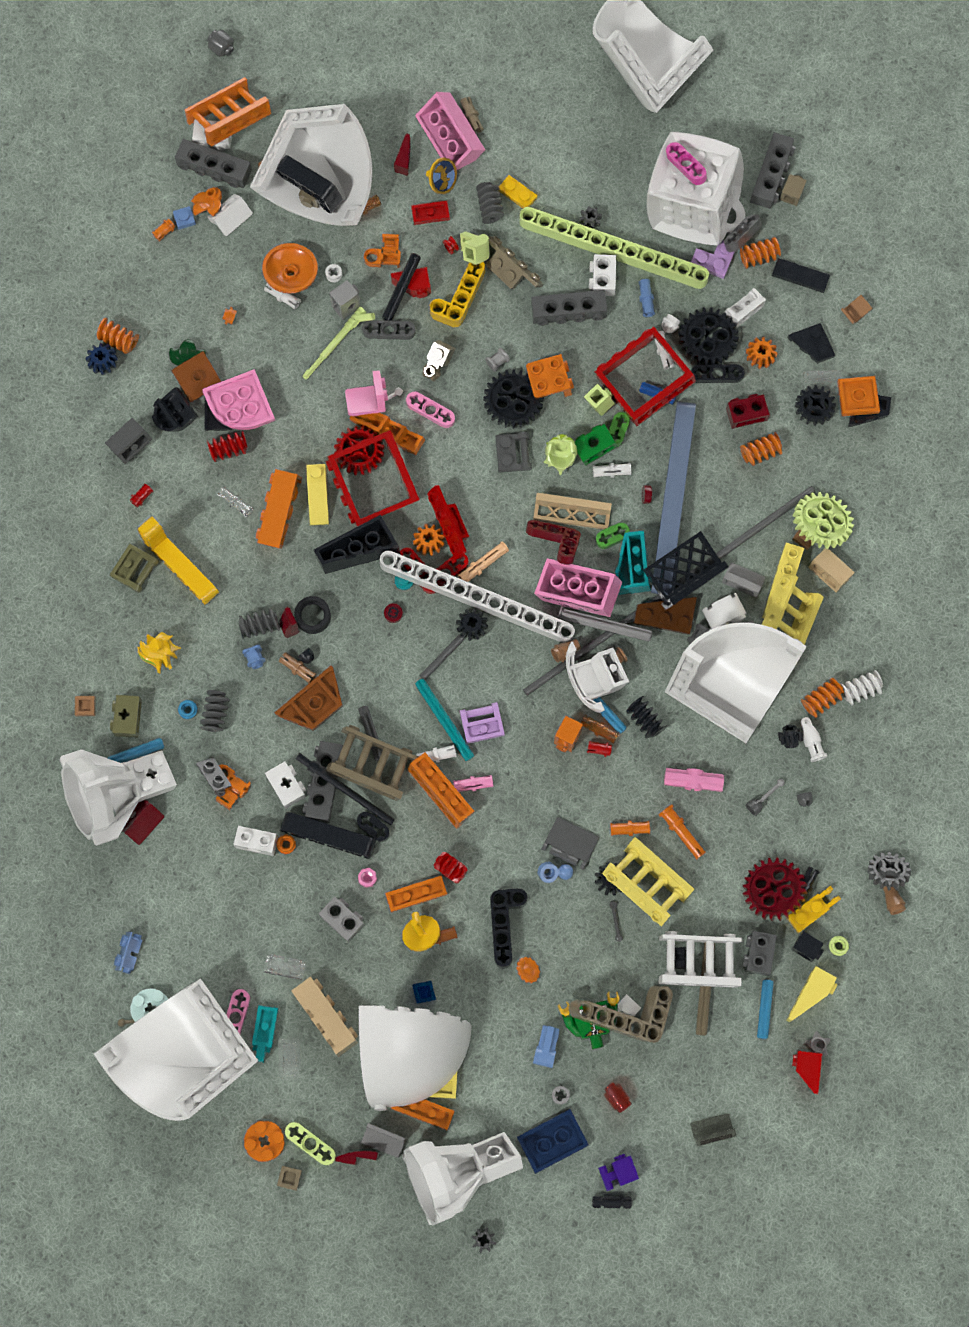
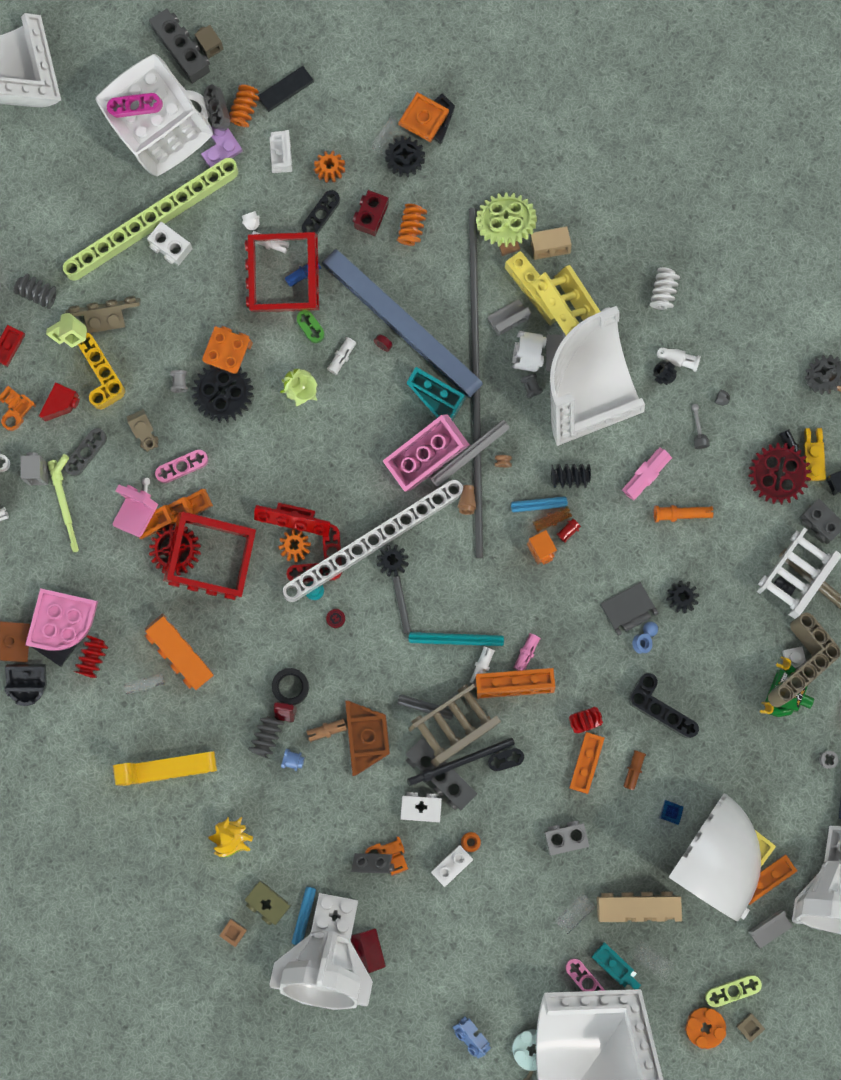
camera: 55 degrees left, 5 degrees up
(128, 441) = (24, 738): dark grey brick -> none
(128, 565) = (135, 813): olive plate -> none
(140, 496) = (80, 760): red pin -> none
(187, 703) = (292, 851): dark azure plate -> none
(214, 711) = (316, 825): dark grey piece -> none
(306, 656) = (322, 715): black hinge -> none
(317, 494) = (188, 610): light yellow slope -> none
(328, 834) = (487, 802): black beam -> none
(351, 1157) = (767, 965): dark red slope -> none
(357, 546) = (260, 605): black wedge -> none
(367, 877) = (545, 794): bright pink tile -> none
(401, 287) = (58, 415): black axle -> none
(420, 932) = (622, 781): yellow shield -> none
(451, 245) = (49, 349): red bush -> none
(477, 567) = (347, 537): light nougat pin -> none
(482, 729) = (487, 612): lavender plate -> none
(507, 454) = (265, 430): dark grey plate -> none
(517, 192) = (43, 262): yellow plate -> none
(528, 969) = (711, 715): orange piece -> none
(546, 1051) = (785, 746): medium blue piece -> none
(559, 302) = (186, 265): dark grey brick -> none
(561, 535) = (352, 448): dark red beam -> none
(574, 504) = (351, 405): tan fence -> none
(593, 216) = (111, 224): dark grey gear -> none
(595, 676) = (509, 491): white piece -> none
(599, 399) = (276, 322): yellowish green brick -> none
(605, 445) = (315, 342): green brick -> none
(610, 532) = (393, 394): bright green beam -> none
(613, 905) = (703, 610): dark grey hinge -> none
(630, 828) = (651, 552): orange pin -> none
(646, 298) = (214, 223): medium blue pin -> none
(659, 870) = (703, 553): light yellow fence -> none
(674, 619) = (497, 397): reddish brown wing -> none
(690, 585) = (487, 359): black fence -> none
(697, 325) = (300, 197): black gear -> none
(813, 342) = (350, 119): black wing -> none
(823, 697) = (650, 324): orange piece -> none
(857, 309) = (348, 66): medium nougat bracket -> none

